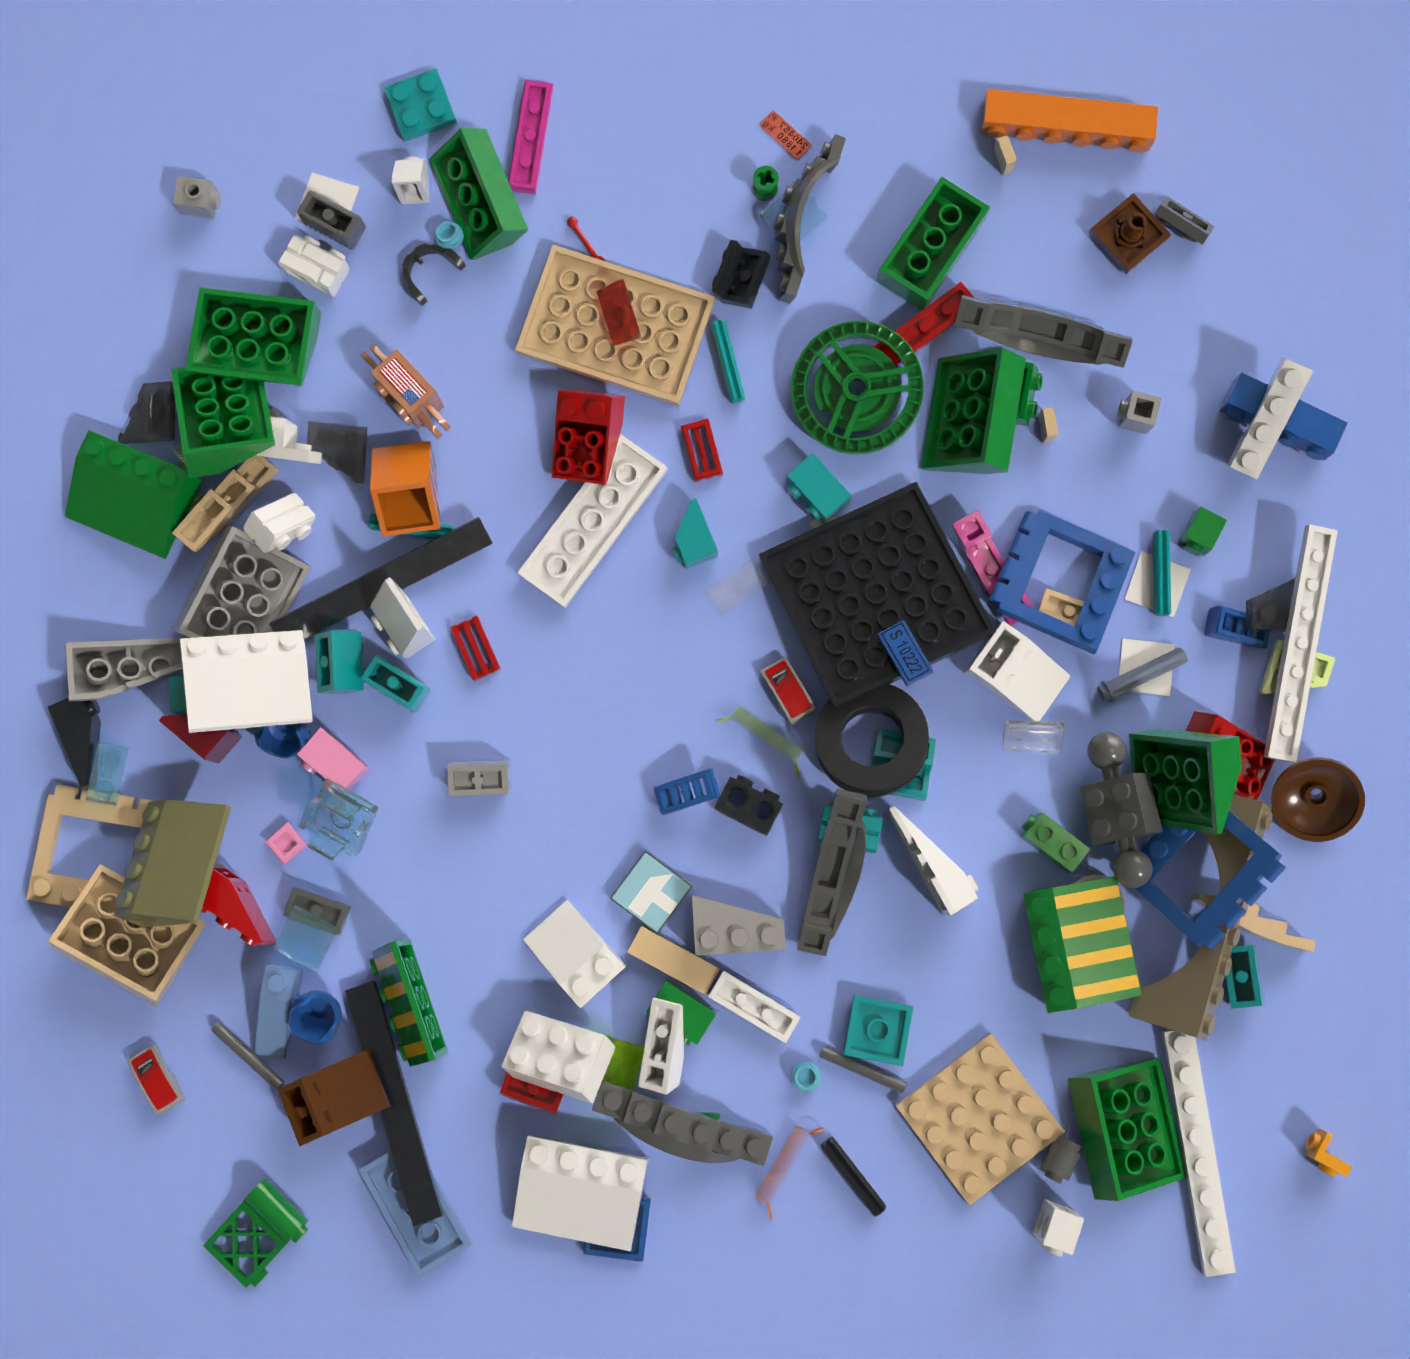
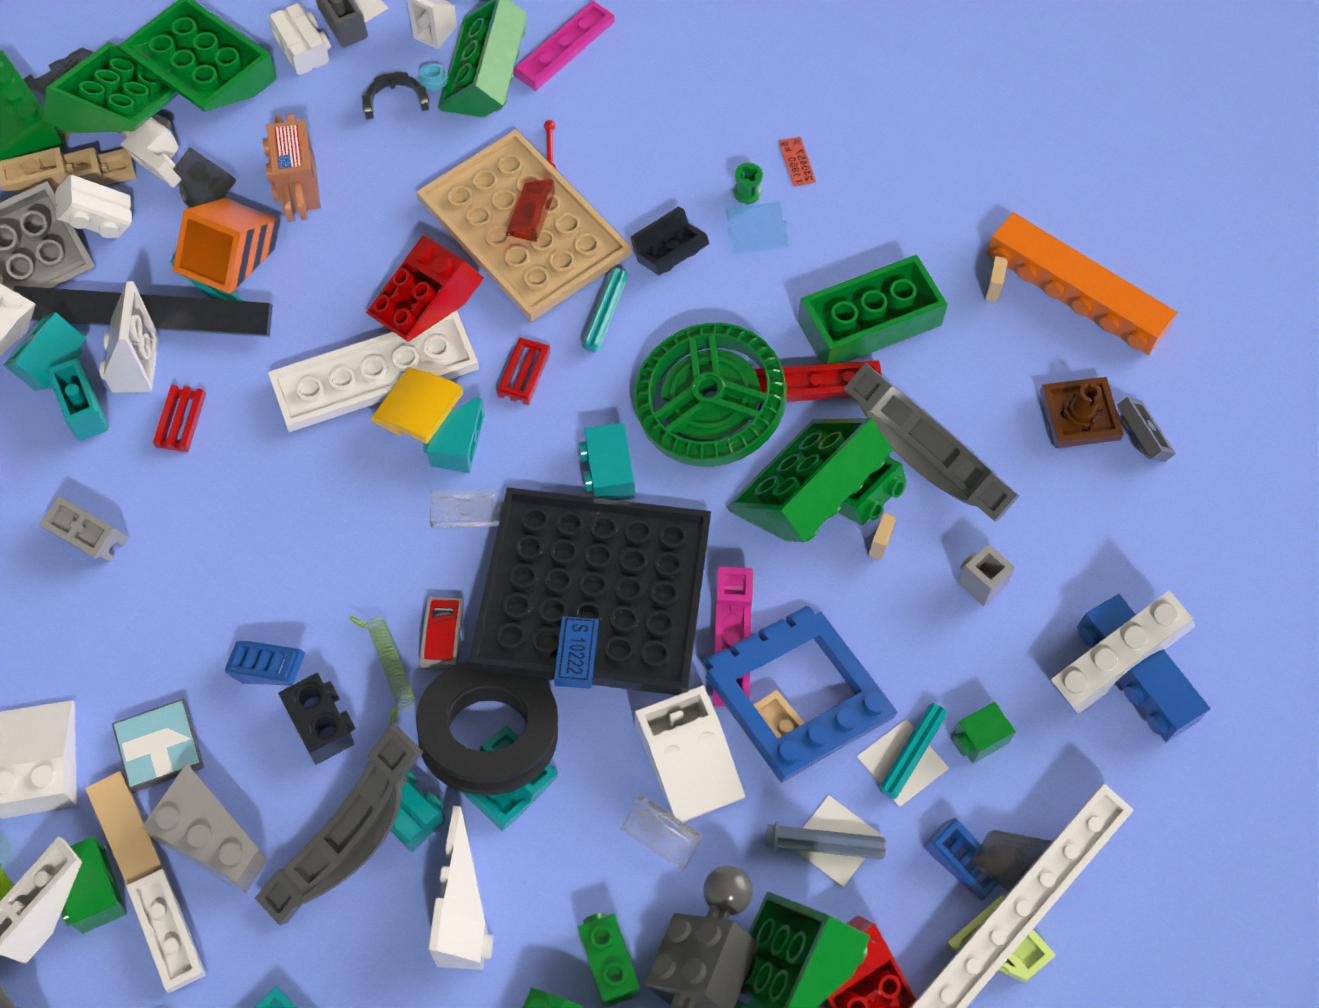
camera: 30 degrees right, 20 degrees down
(651, 531) = (417, 404): none -> yellow slope
(789, 221) = (761, 209): dark grey piece -> none

